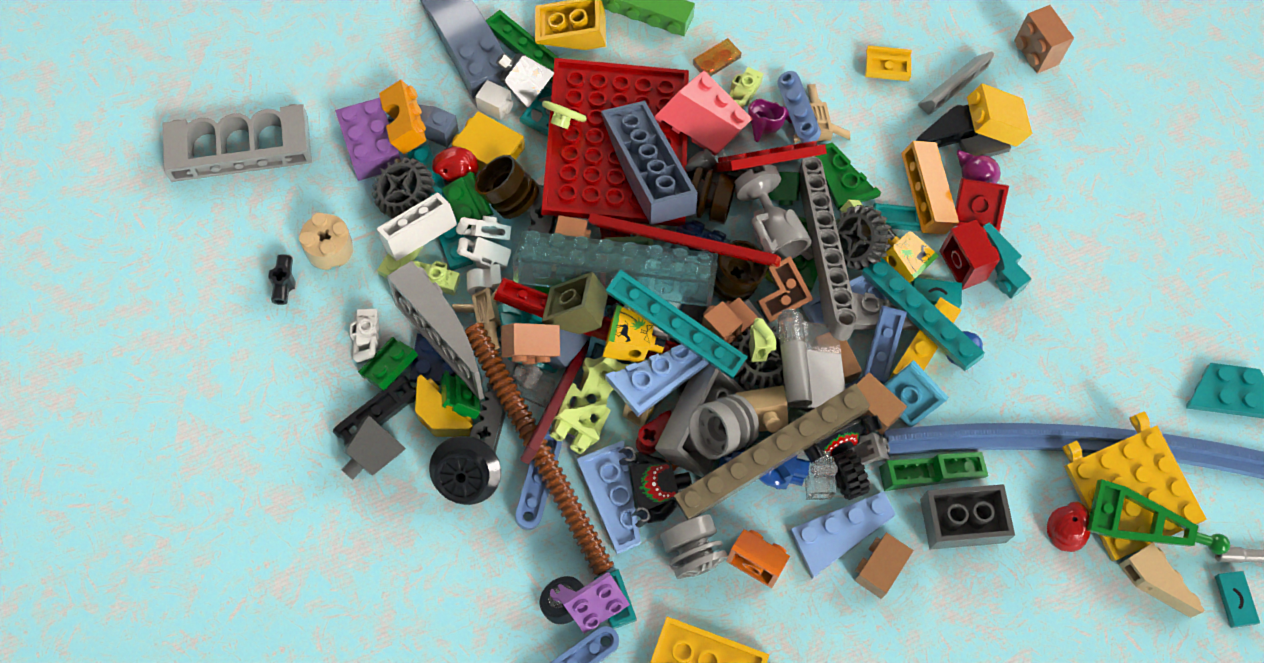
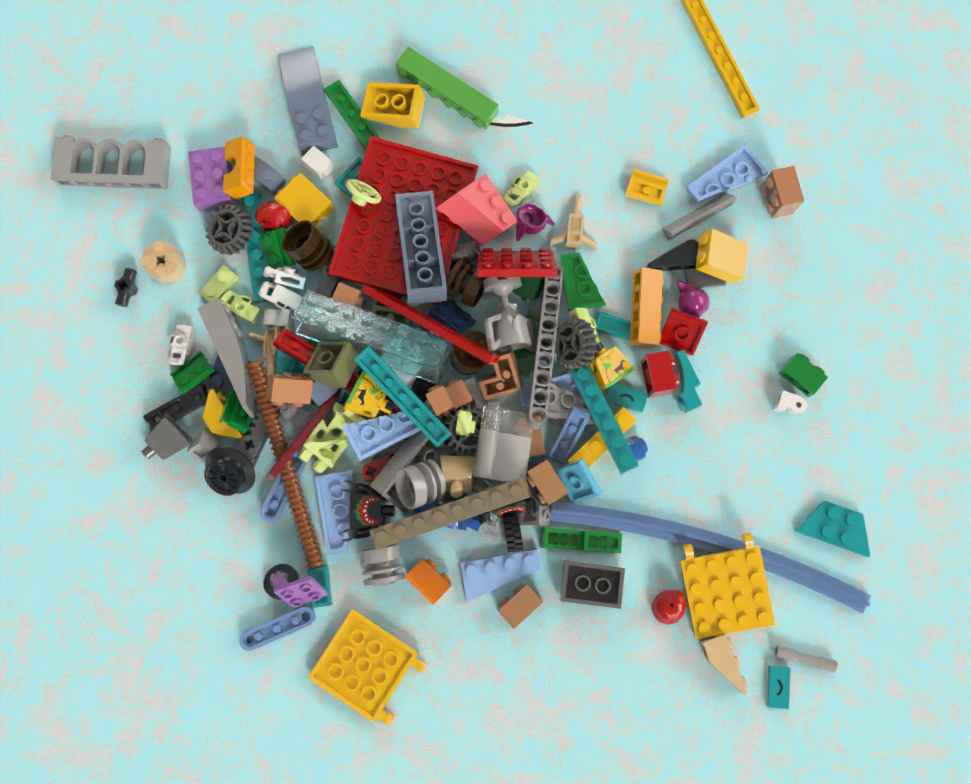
camera: 20 degrees right, 15 degrees up
(417, 226) = (230, 267): white brick -> none
(420, 448) = (203, 443): none -> light grey panel
(523, 77) = (342, 149): torso -> none
(709, 23) = (510, 121): none -> sticker
(717, 57) = (506, 156): clear orange plate -> none
(799, 107) = (560, 215): medium blue plate -> none
(976, 33) = (730, 173): none -> light blue wing
(1107, 511) = (697, 605): green plate -> none
(1129, 260) = (792, 403): none -> white leg
(1134, 227) = (803, 374): none -> green brick

